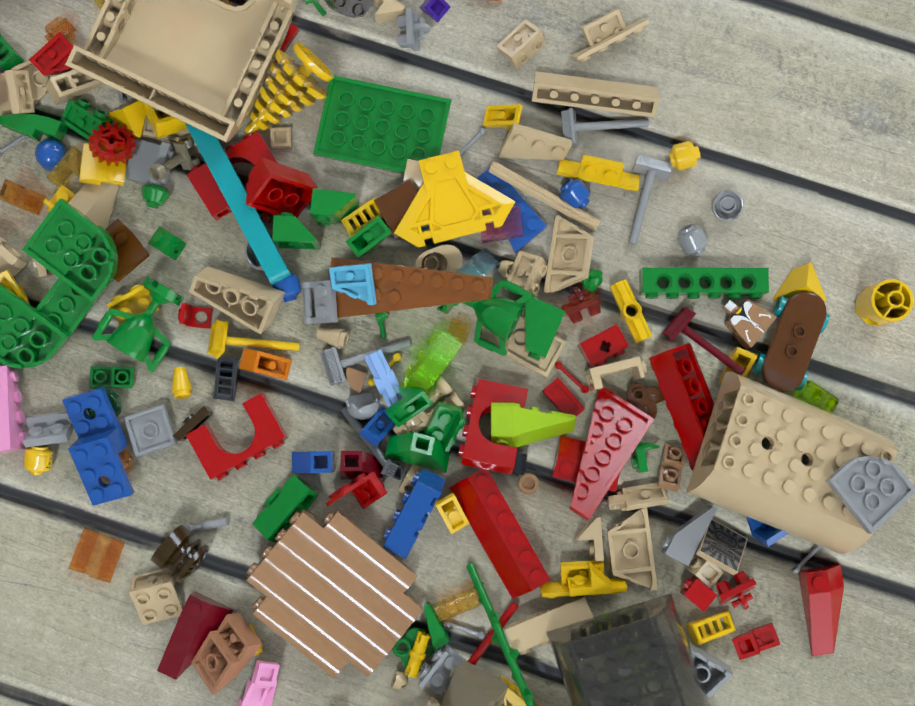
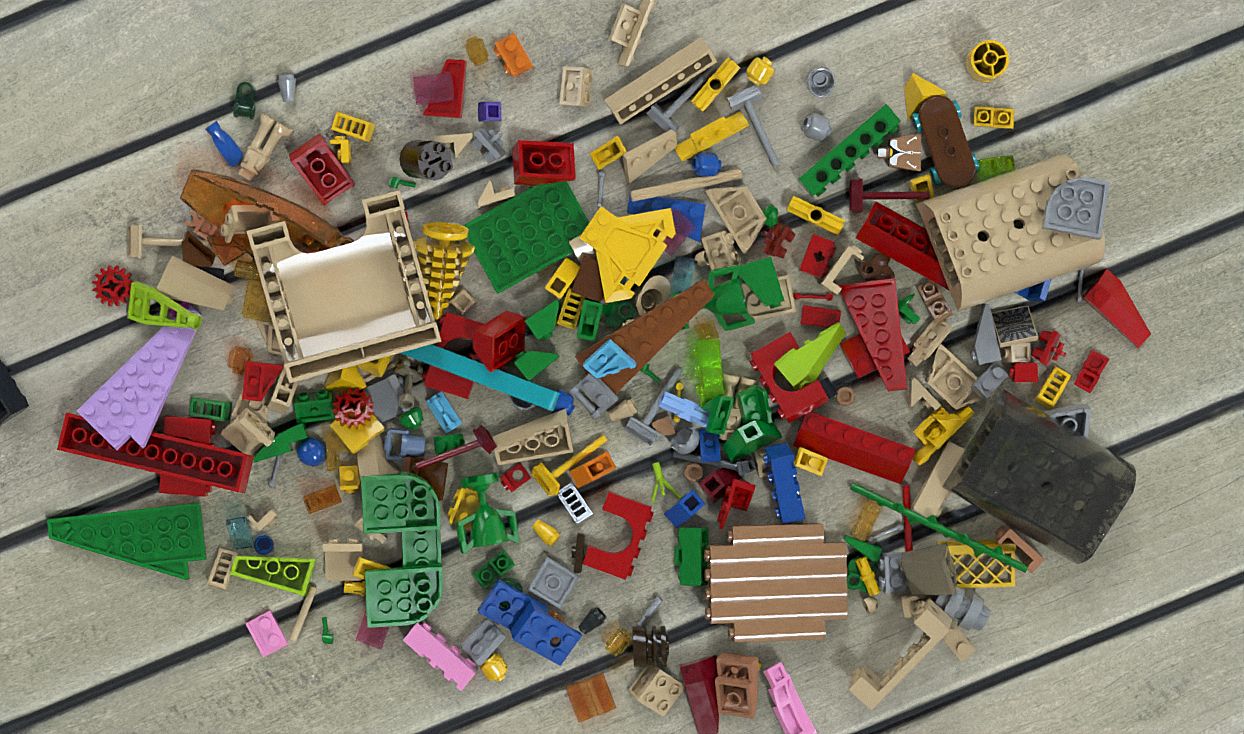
camera: 35 degrees left, 5 degrees up
(132, 213) = (411, 445): none -> sand blue piece
(155, 490) = (592, 620): none -> pearl dark grey cone
(159, 527) = (618, 642): none -> clear yellow brick
(186, 213) = (443, 412): none -> medium azure hinge
(195, 262) = (483, 440): none -> dark red piece
(309, 423) = (660, 481): none -> lime plant
(347, 438) = (693, 472): none -> medium nougat tile
(375, 185) = (563, 278): none -> yellow slope
(376, 72) = (490, 197): none -> tan slope
(396, 250) = (615, 314): none -> green plate
(442, 79) = (543, 162): none -> red slope
(650, 134) = (706, 93): none -> yellow piece
(662, 575) = (989, 381): none -> light grey plate
(847, 357) = (994, 117): none -> yellow slope

